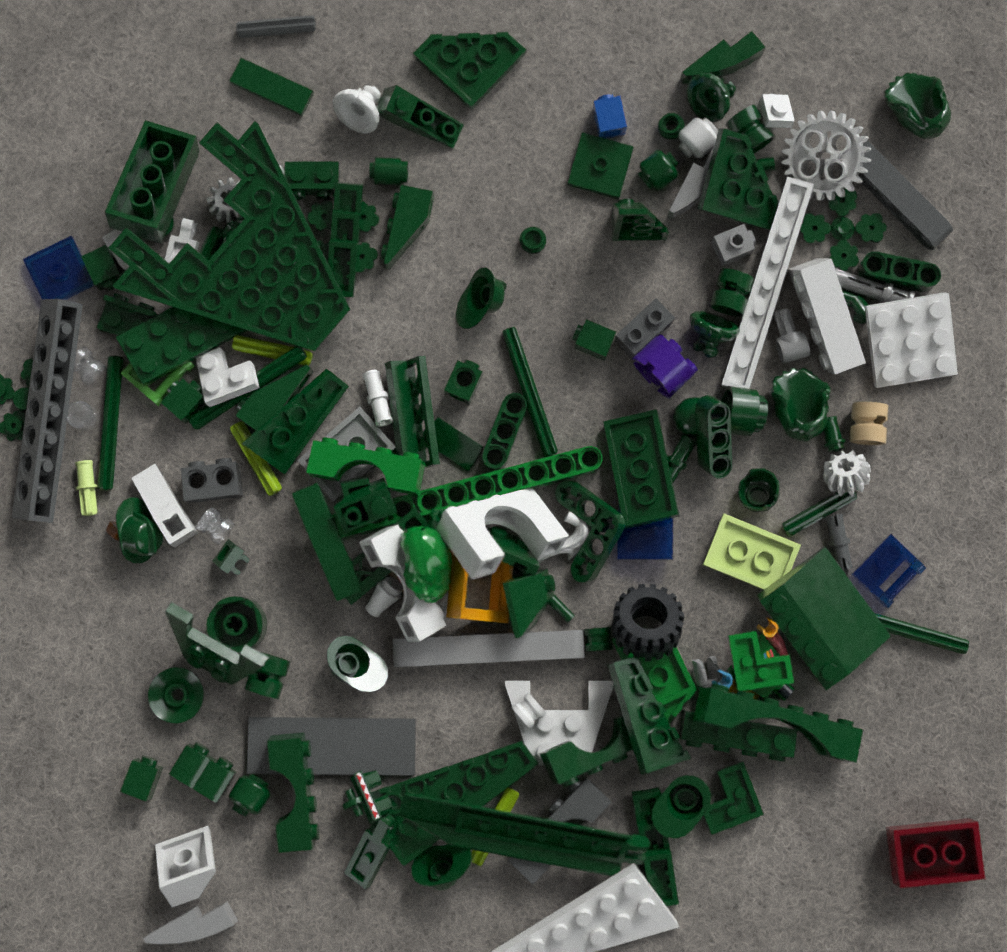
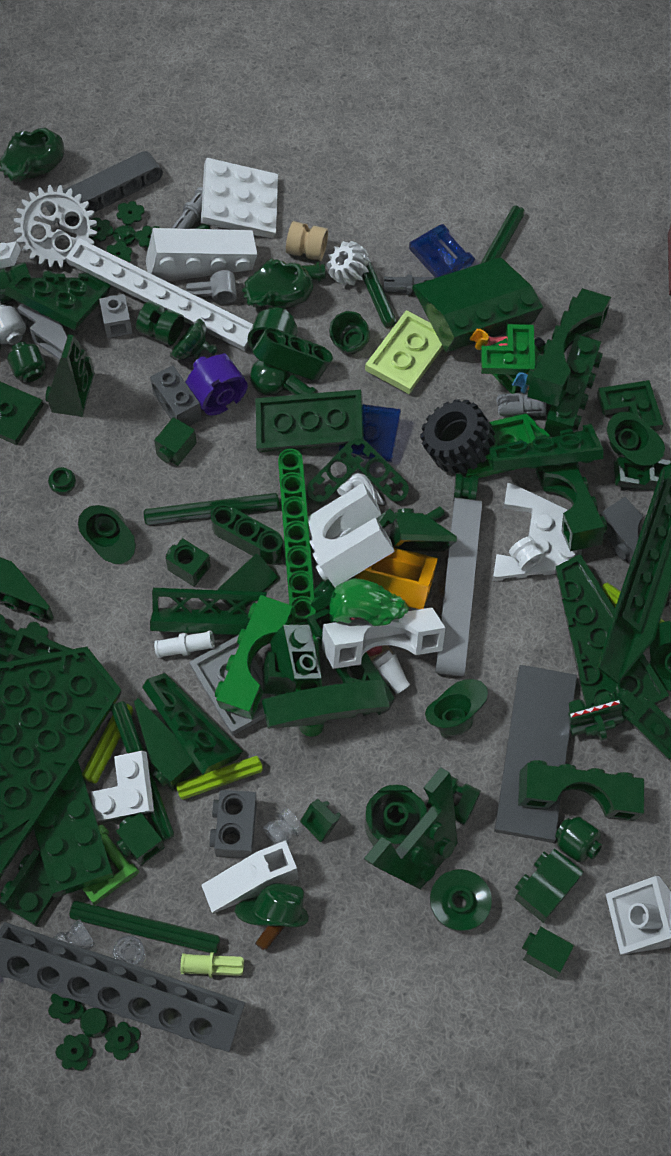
camera: 85 degrees left, 20 degrees down
(911, 268) = (175, 194): dark green beam -> none

